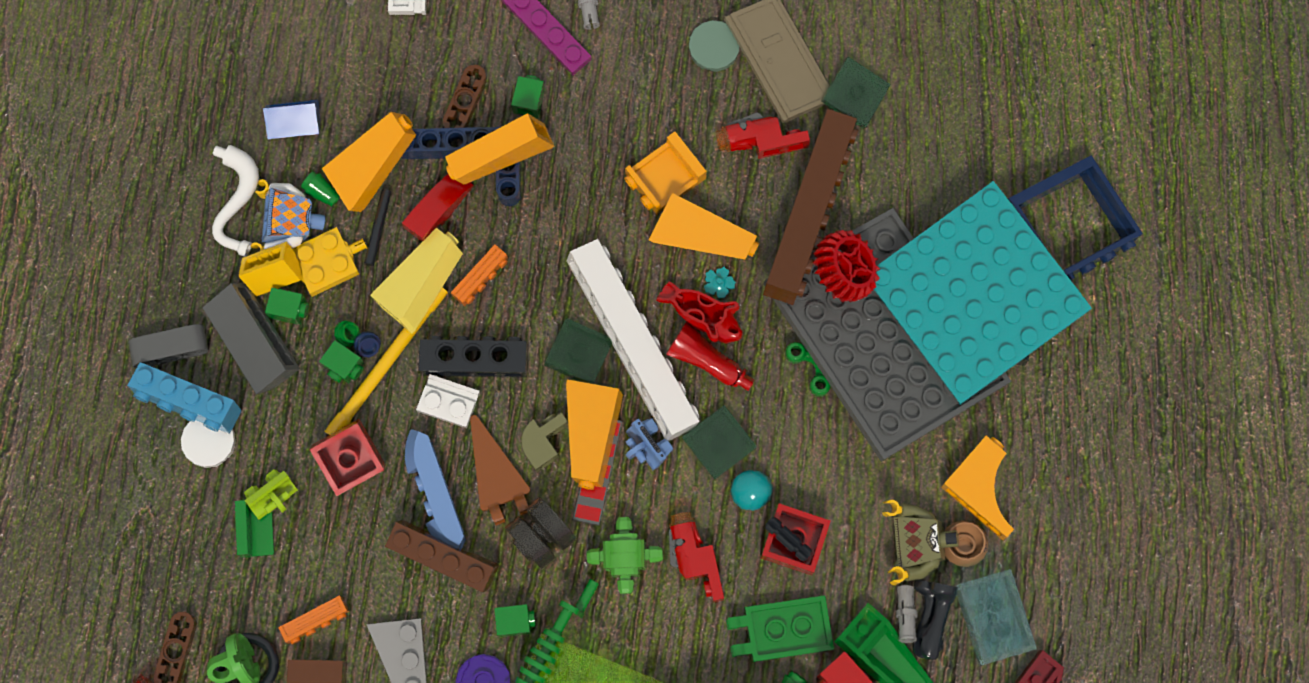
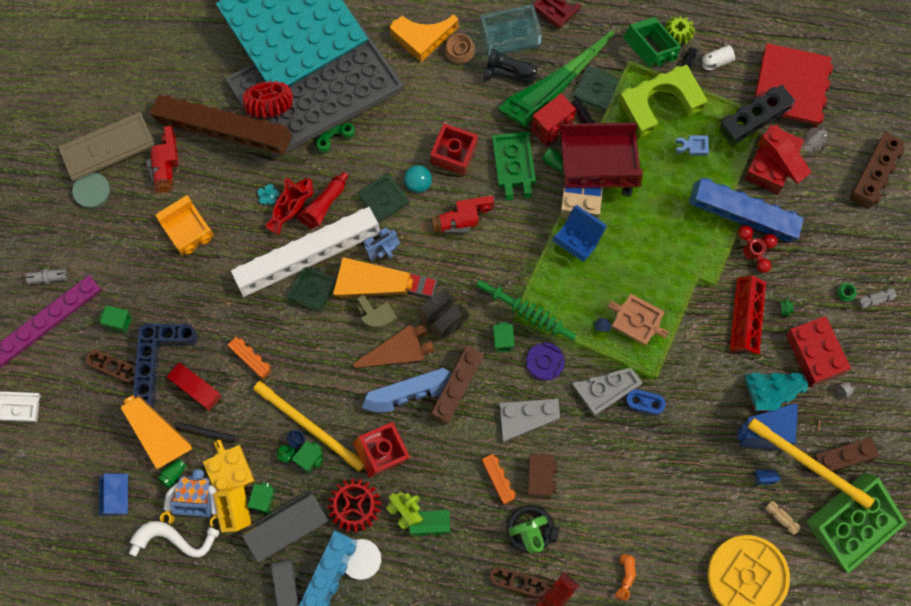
camera: 90 degrees left, 5 degrees down
(285, 421) = (360, 499): none -> red gear
(418, 279) = (250, 399): light yellow slope -> none
(448, 401) = (342, 382): white plate -> none
(499, 149) = (158, 333): light orange slope -> none
(513, 366) = (313, 391): black brick -> none
(625, 555) = (460, 260): bright green piece -> none
(697, 229) = (228, 205): light orange slope -> none
(788, 538) = (455, 148): black axle -> none
(855, 92) = (137, 97): clear green plate -> none
(906, 614) = (507, 85): light grey pin -> none
(918, 541) = (458, 73): olive torso -> none

